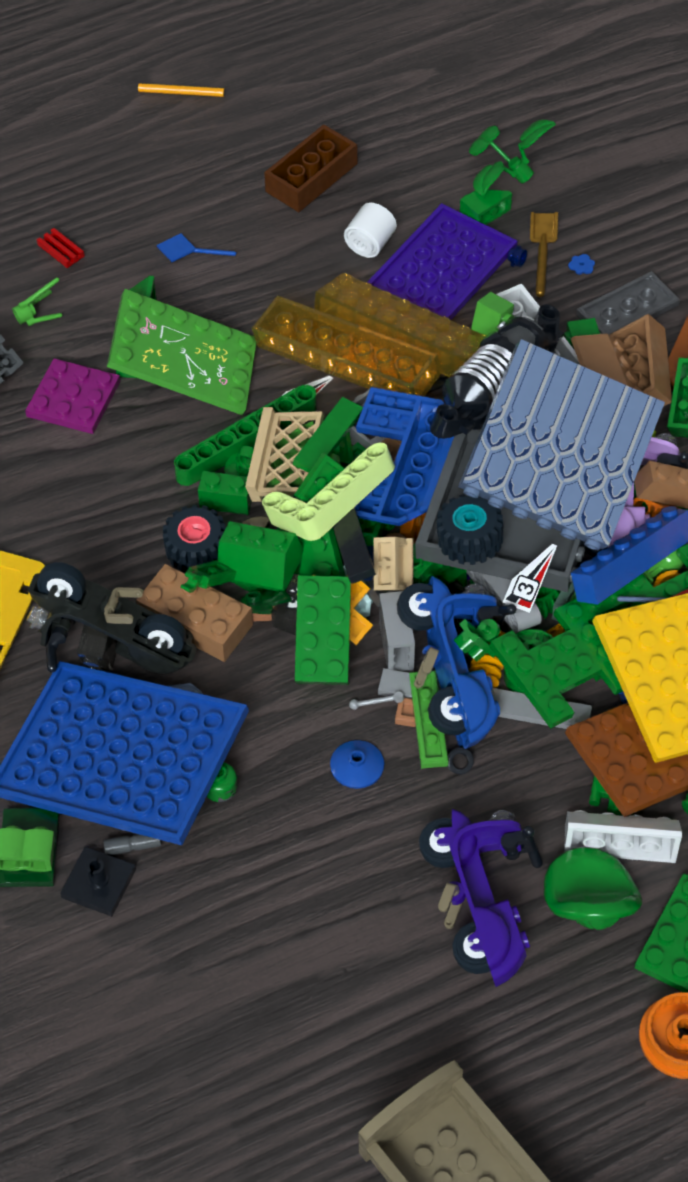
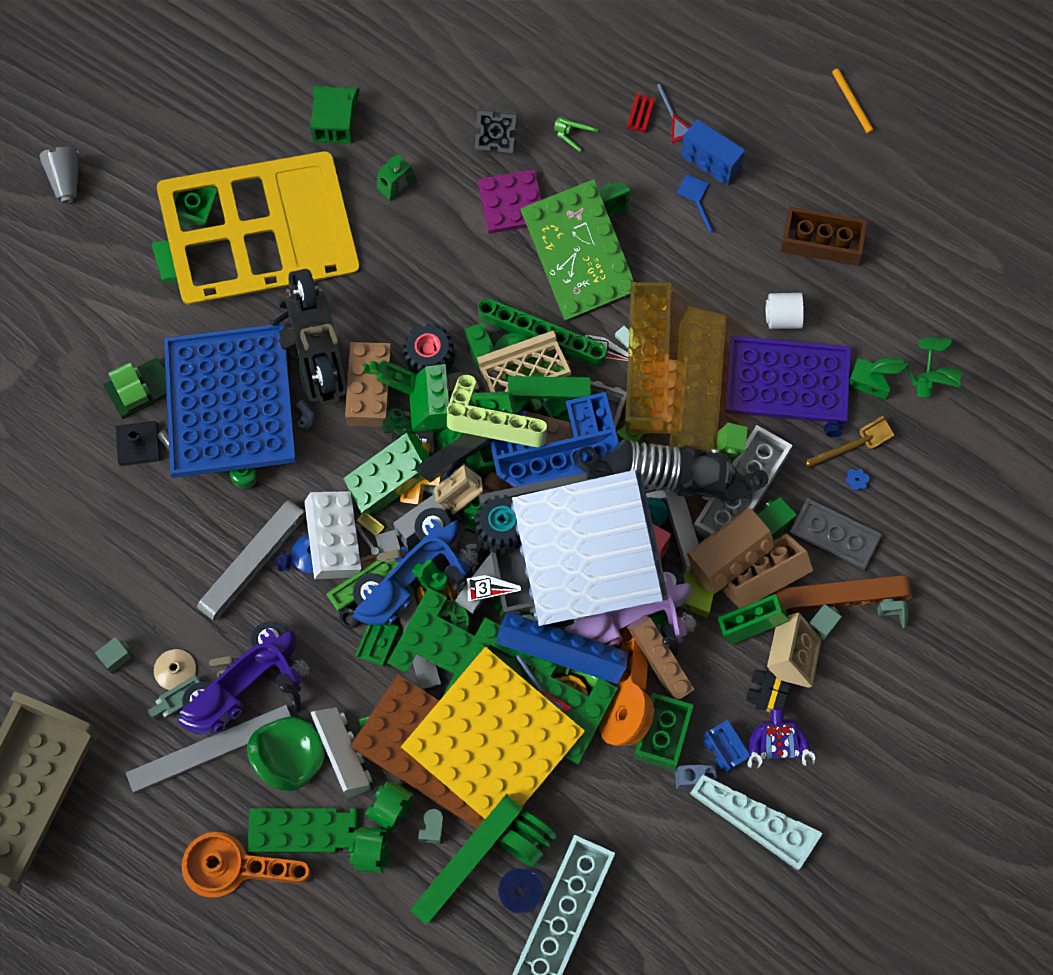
camera: 60 degrees right, 15 degrees up
(103, 228) = (679, 128): none -> sand blue piece
(156, 205) = (712, 152): none -> blue brick
(302, 372) = (623, 336): none -> light aqua piece
(330, 825) = (251, 560): none -> light grey beam
(351, 793) = (283, 561): none -> clear blue plate
(355, 724) = (332, 535): none -> white brick
(357, 1025) = (114, 654): none -> sand green brick
(358, 690) = (370, 524): none -> light yellow piece
(410, 982) = (185, 668): none -> tan dish
(454, 983) = (171, 701): none -> sand green hinge
(509, 745) = (377, 643): none -> green plate
(535, 986) = (200, 752): none -> light grey tile

